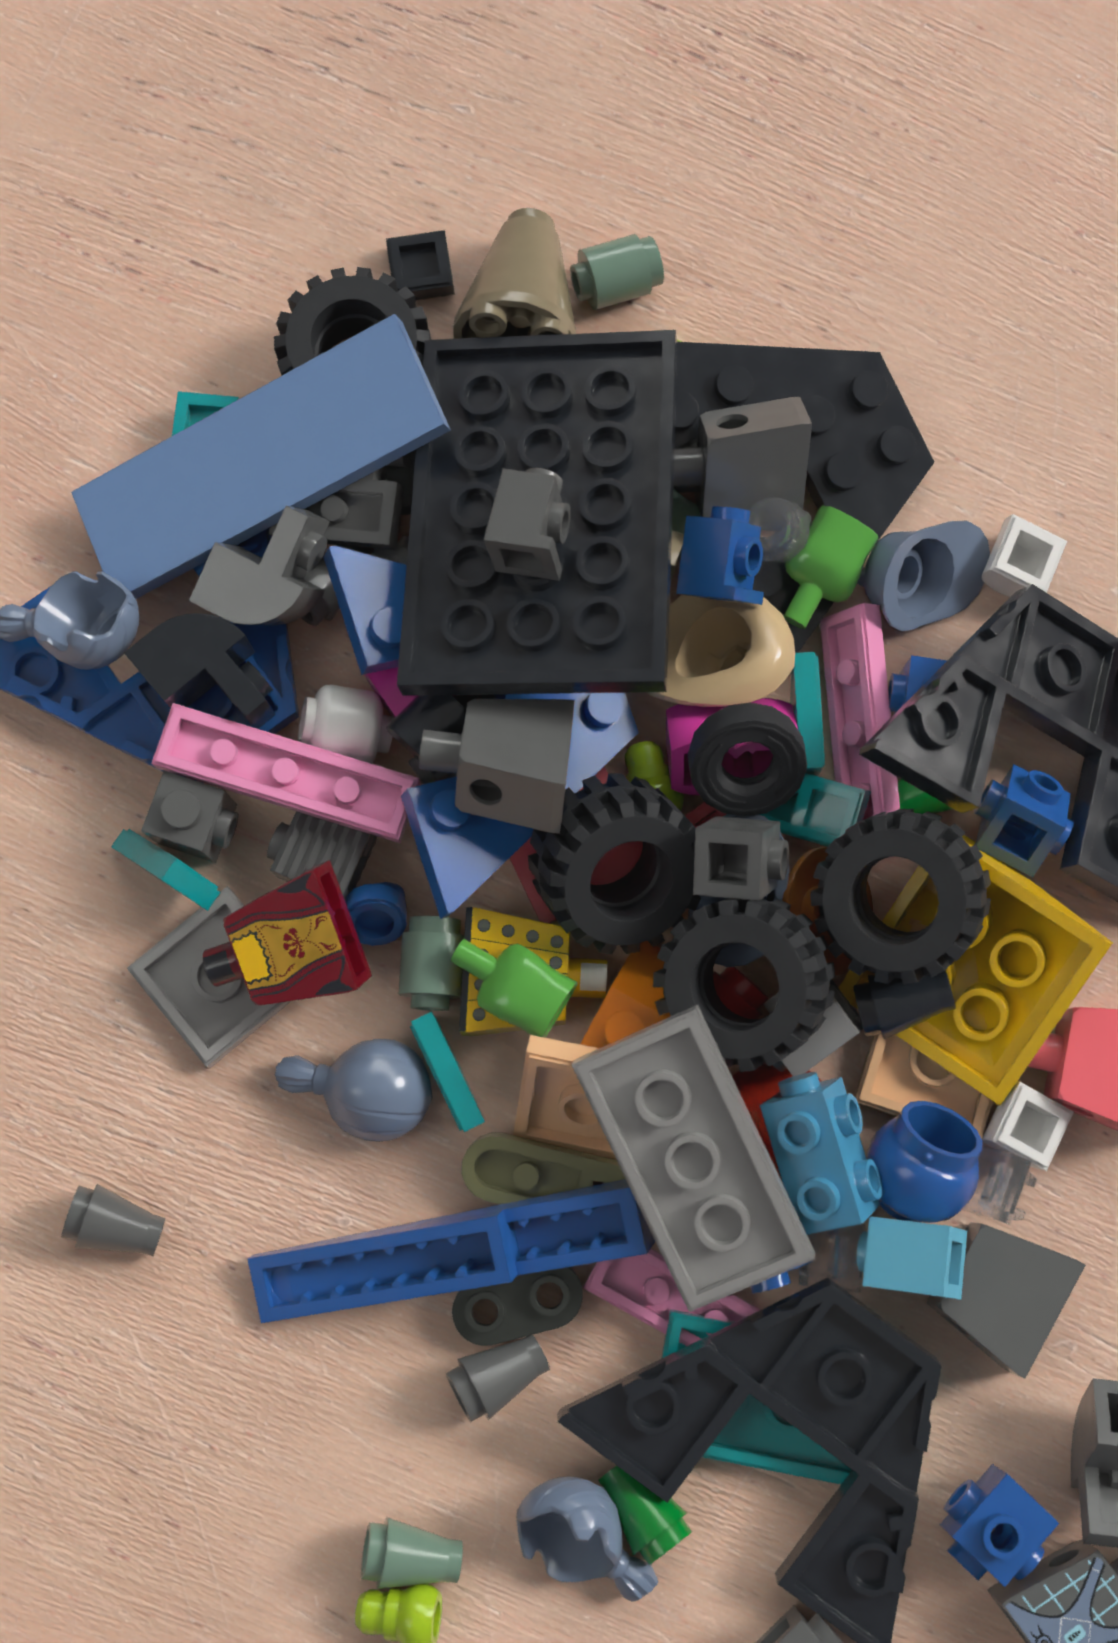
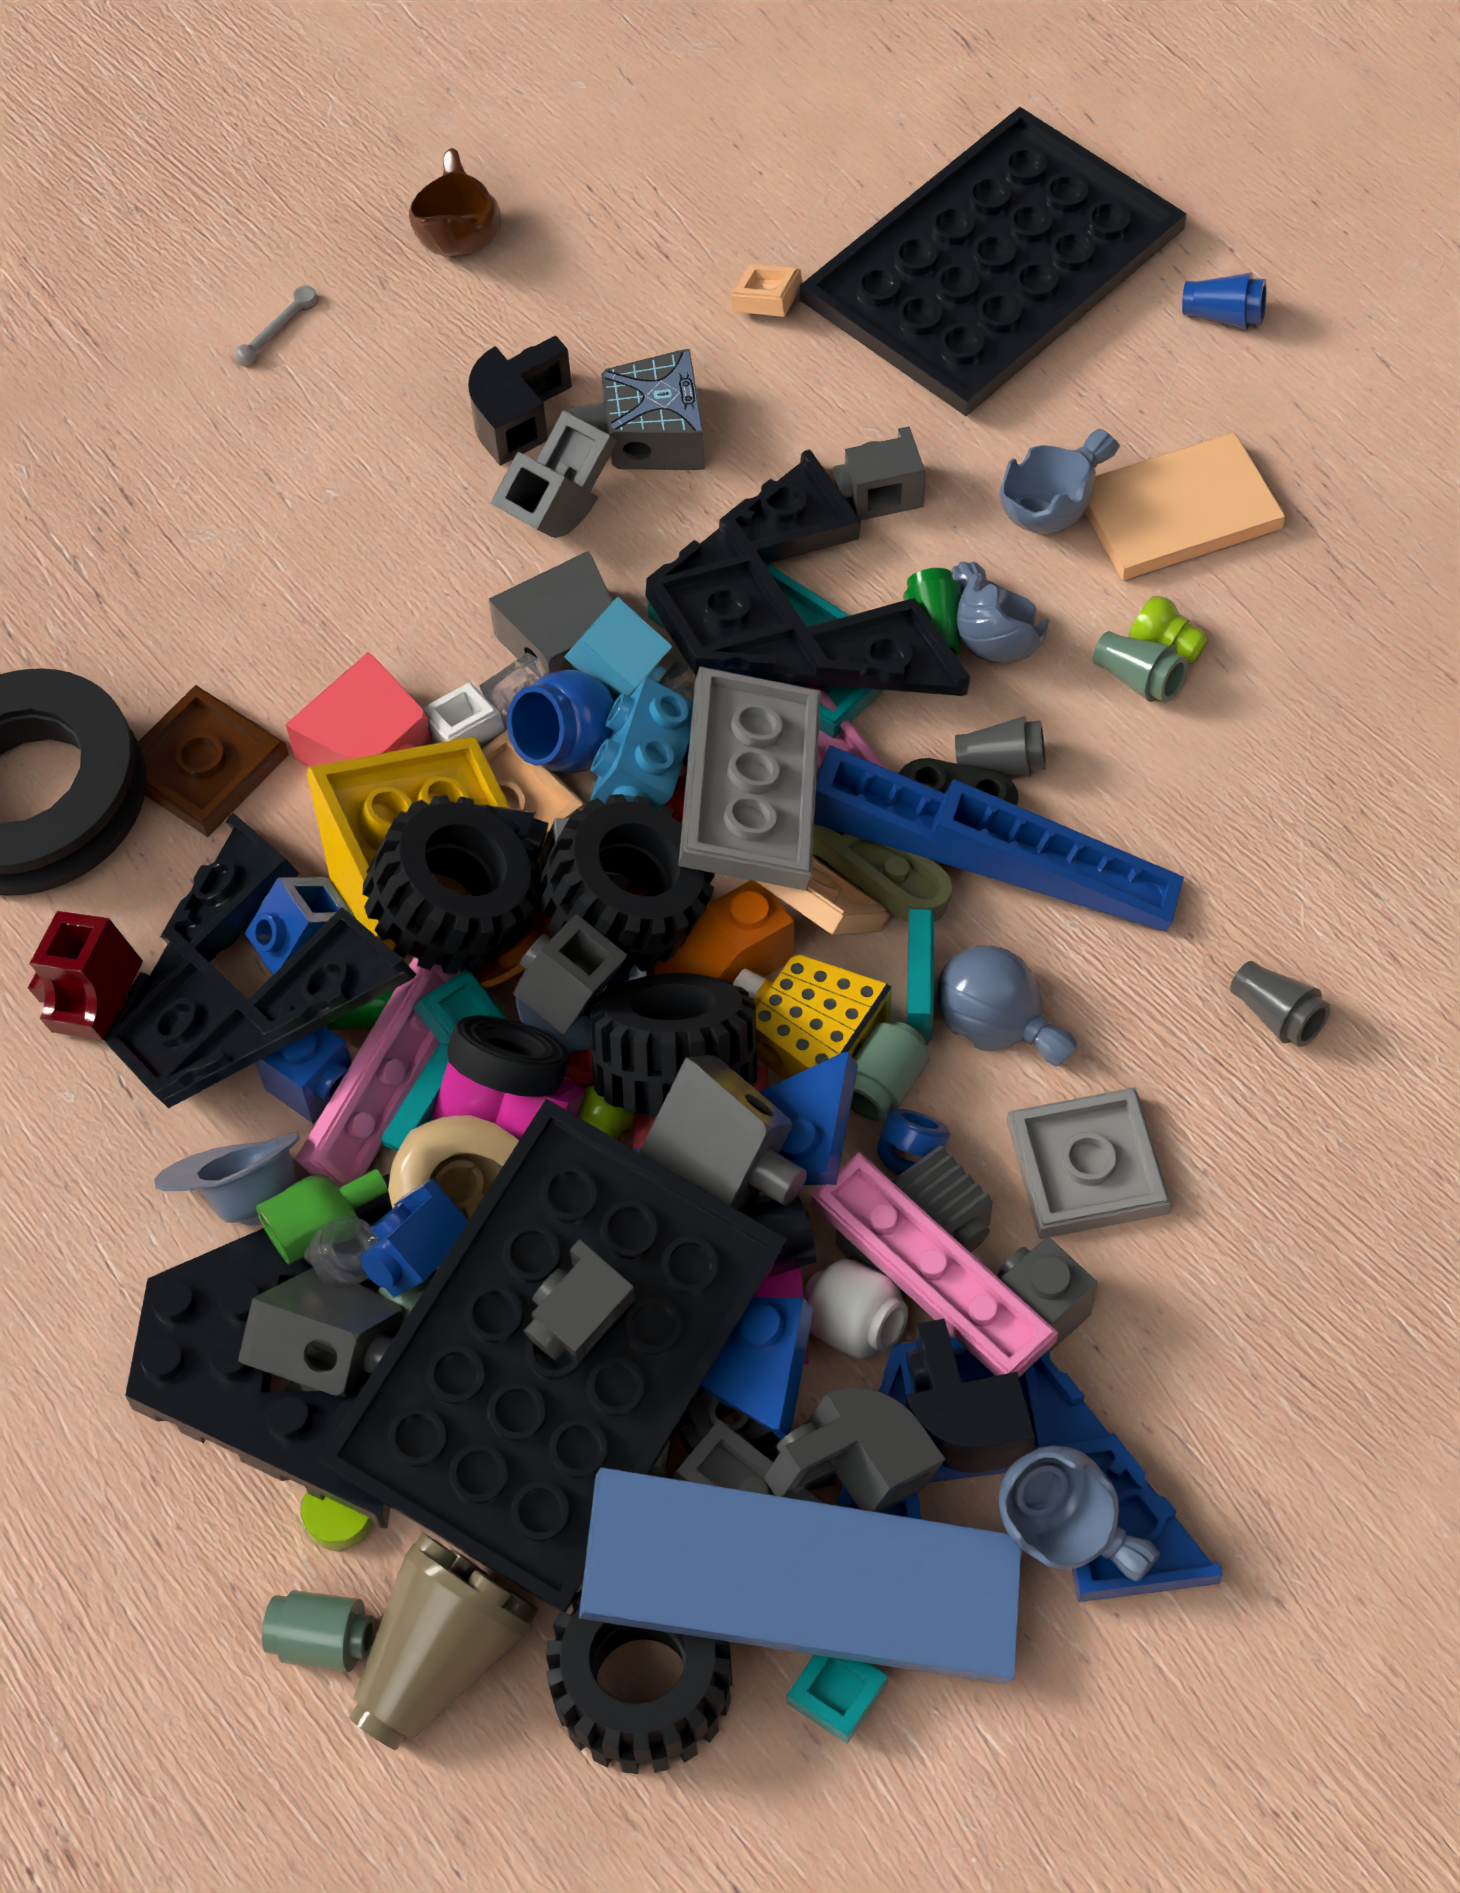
camera: 150 degrees left, 20 degrees down
(166, 868) = (1085, 1242): teal tile -> none
(292, 943) = (1004, 1119): torso -> none
(421, 264) = (514, 1762): black tile -> none
(517, 986) = (819, 984): bright green piece -> none
(1020, 1529) = (672, 483): blue brick -> none
(1022, 557) = (135, 1147): white brick -> none

